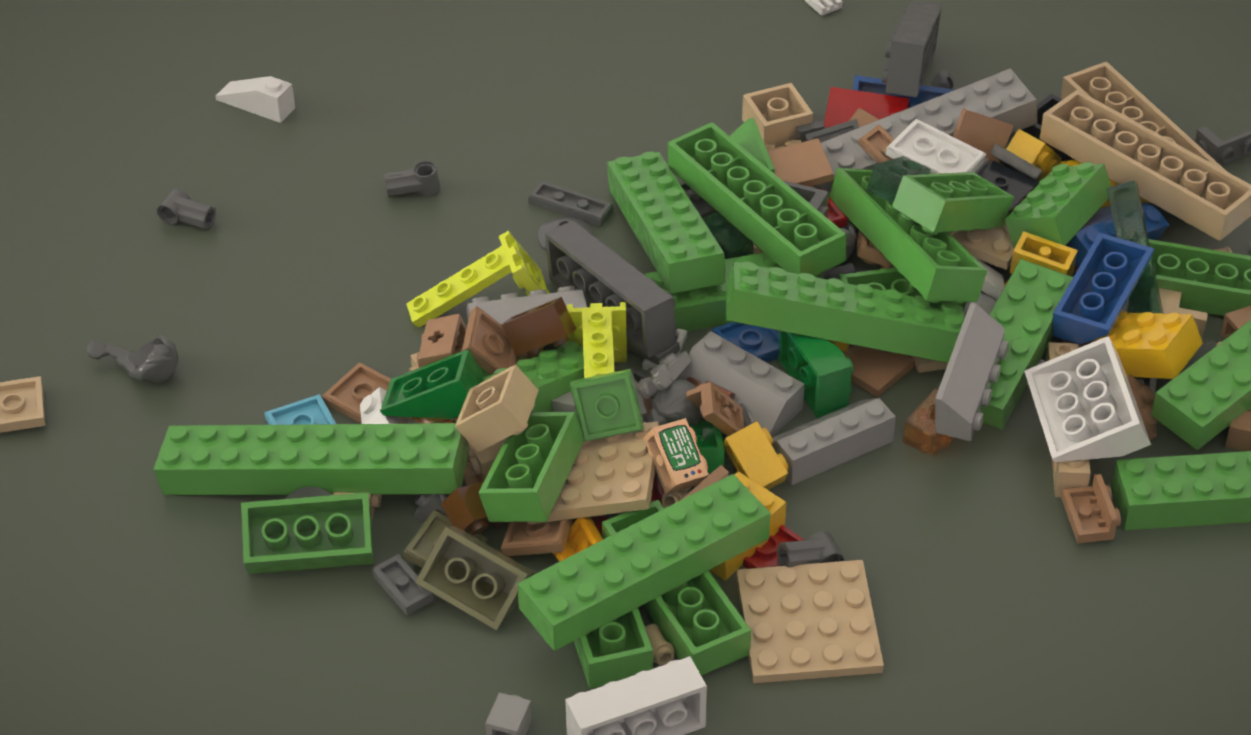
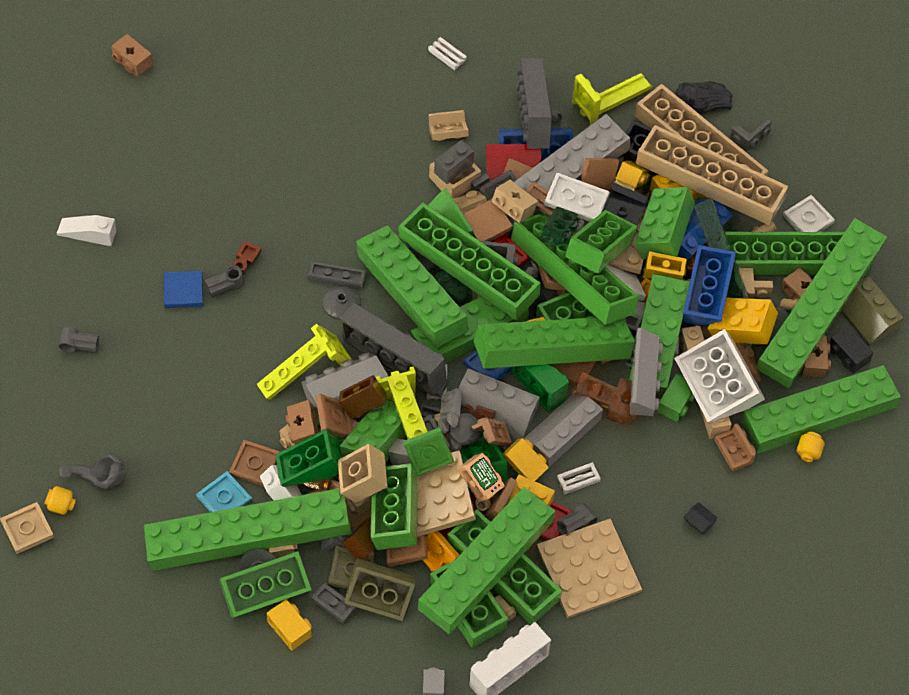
camera: 20 degrees left, 15 degrees up
(72, 381) = (59, 500): none -> yellow head
(325, 596) = (289, 624): none -> yellow brick
(353, 182) = (183, 289): none -> blue tile
(455, 158) = (246, 255): none -> copper plate
(775, 91) = (454, 162): none -> dark grey brick
(788, 65) = (448, 125): none -> tan bracket
(833, 508) = (564, 484): none -> white tile
(844, 142) = (514, 201): none -> tan brick
(893, 390) = (597, 390): none -> clear orange brick
(994, 55) = (595, 103): none -> neon yellow bracket
(1007, 591) = (700, 518): none -> black piece
(1014, 432) = (676, 399): none -> bright green brick
(1170, 92) = (705, 96): none -> black hair
(1212, 532) = (810, 446): none -> yellow head

